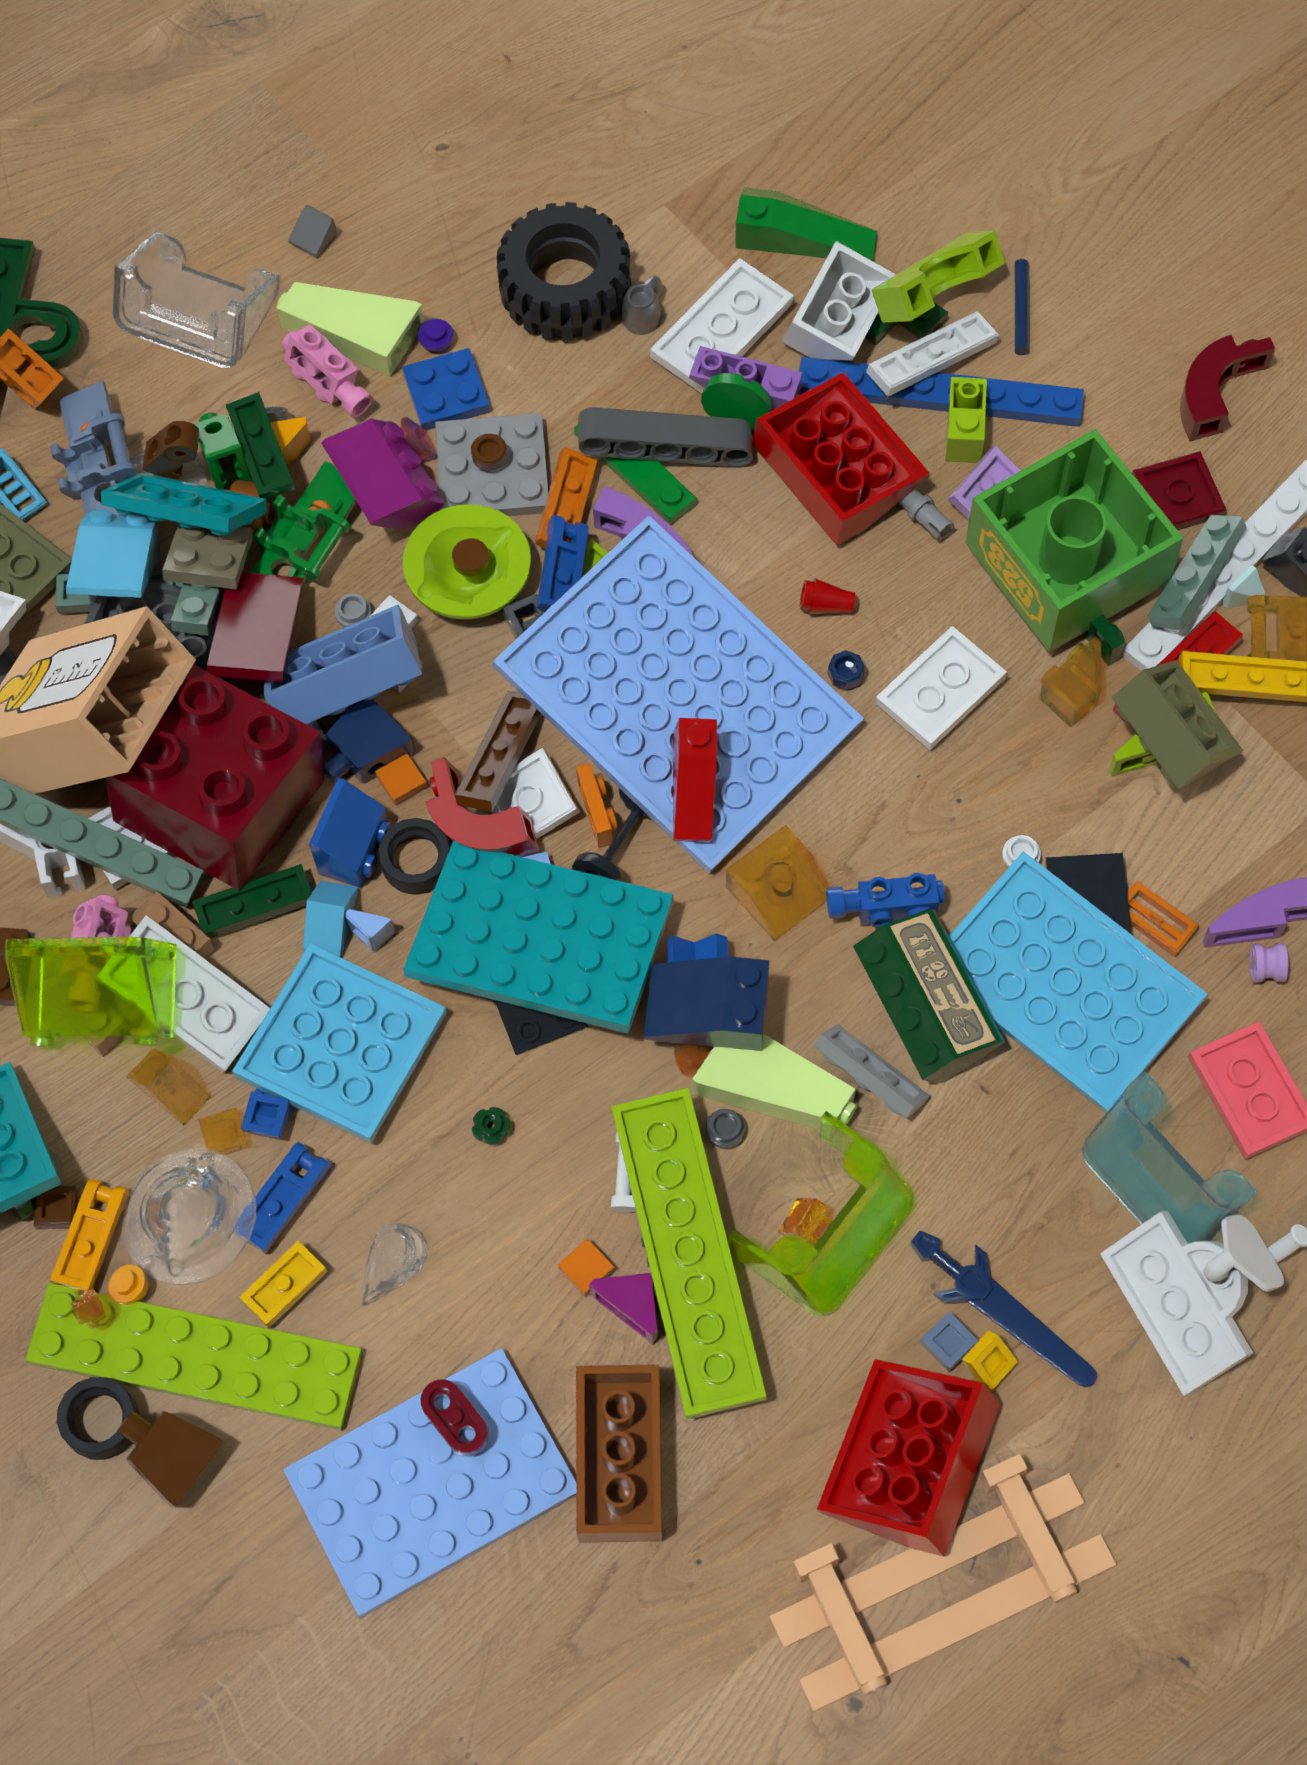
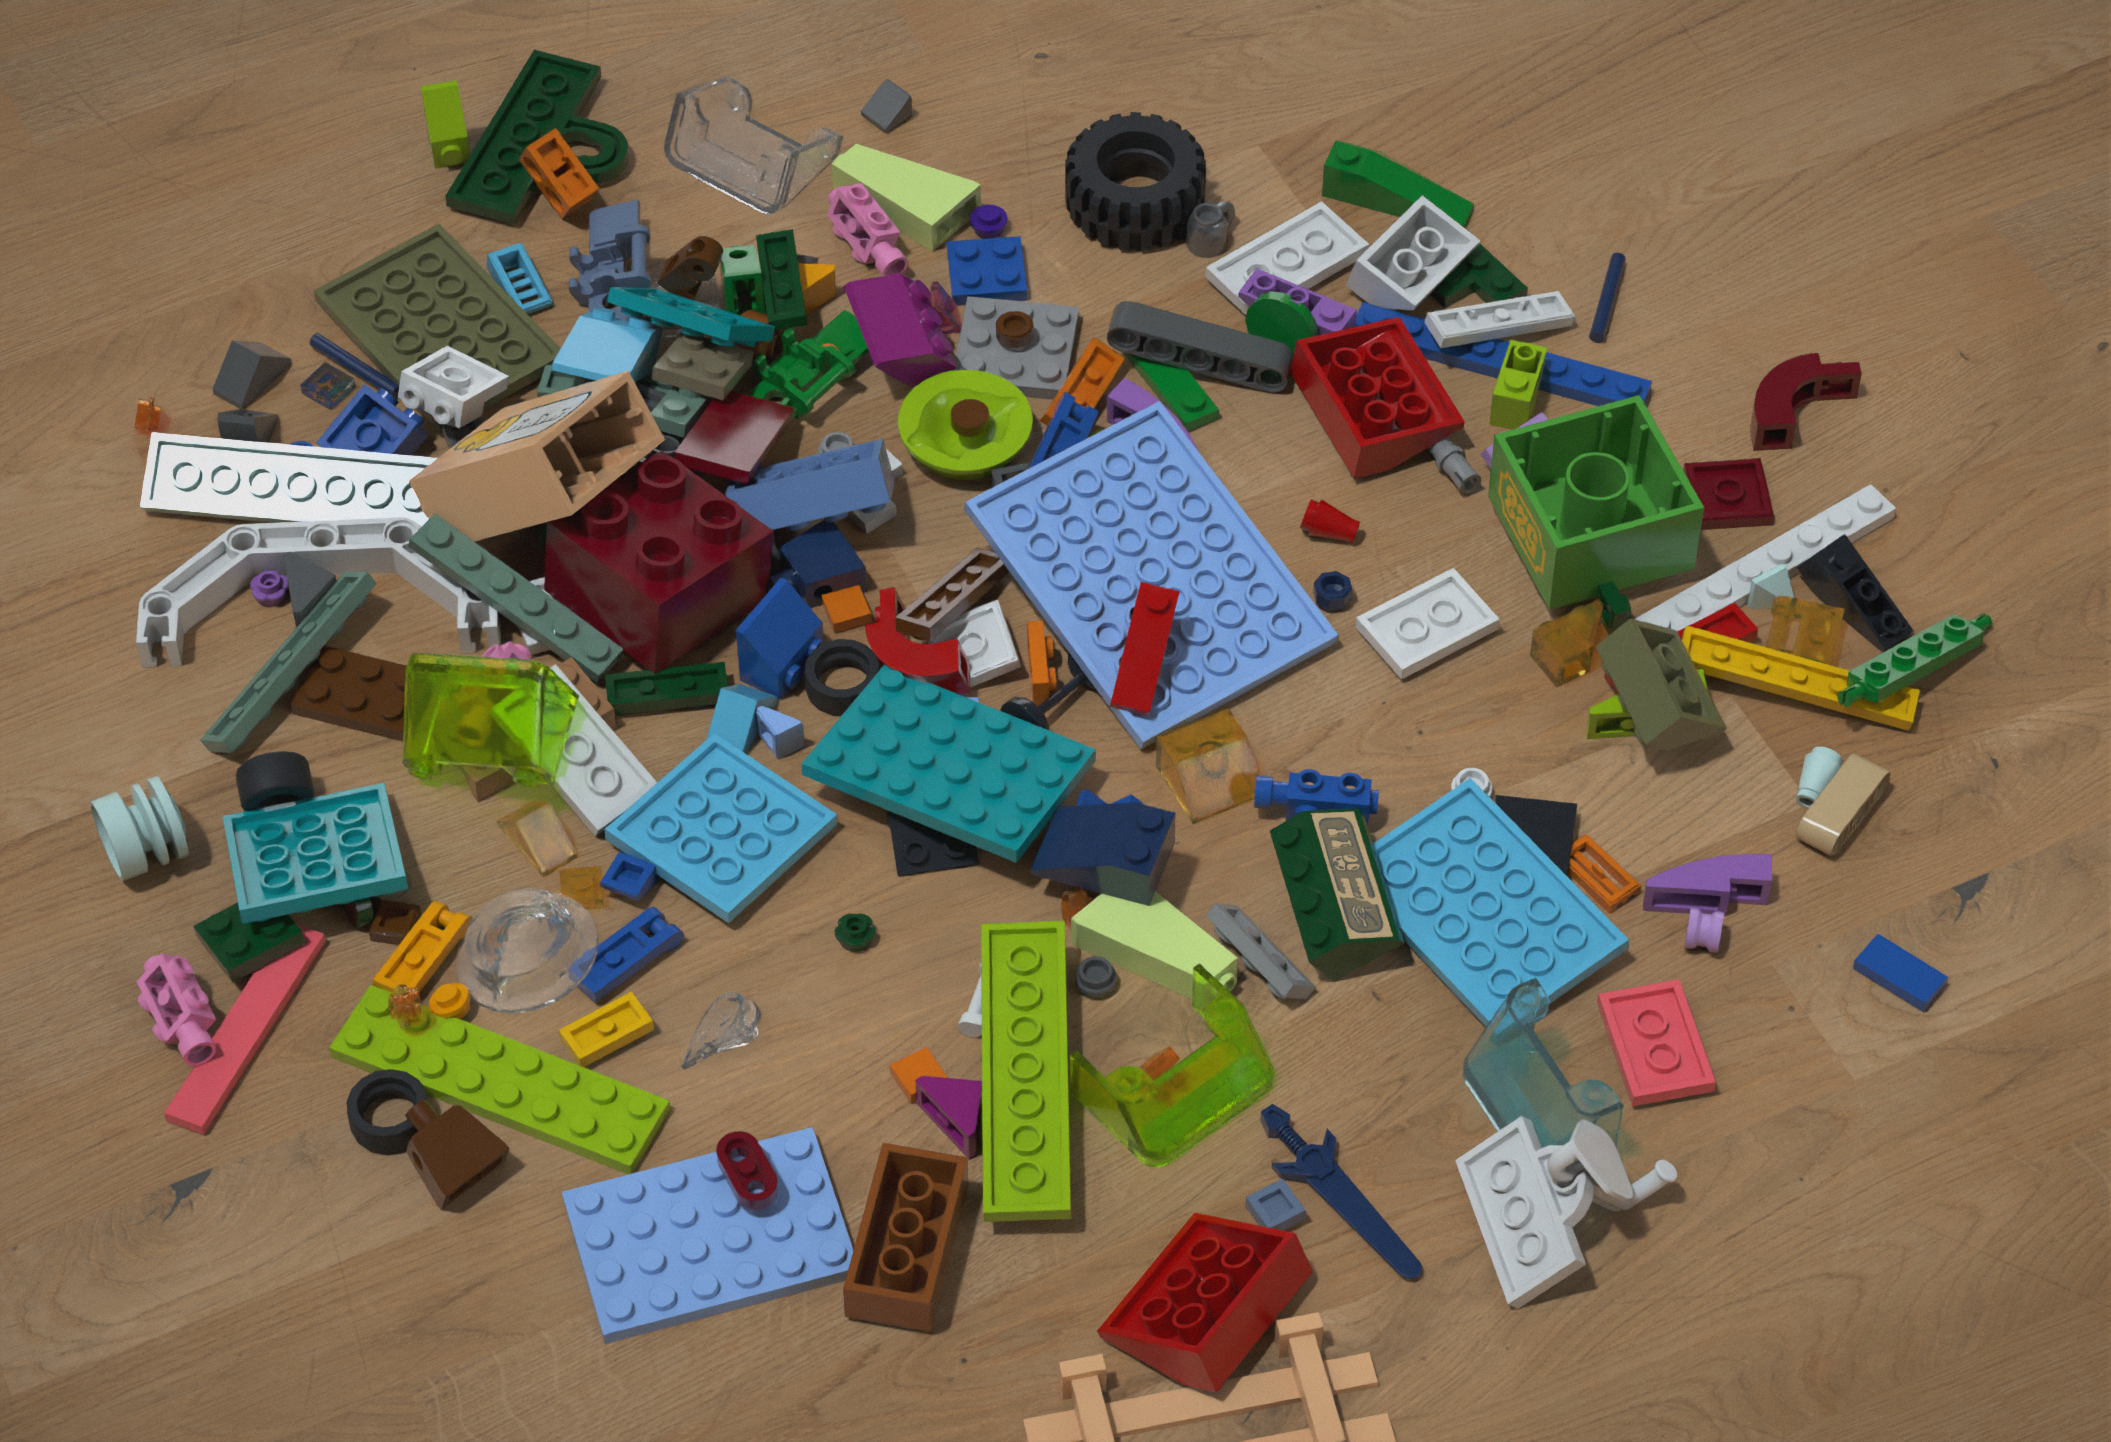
camera: 10 degrees right, 15 degrees down
(959, 261) = (1521, 246): lime arch -> none
(990, 1360) = (1314, 1230): yellow plate -> none
(1197, 572) = (1724, 561): sand green plate -> none

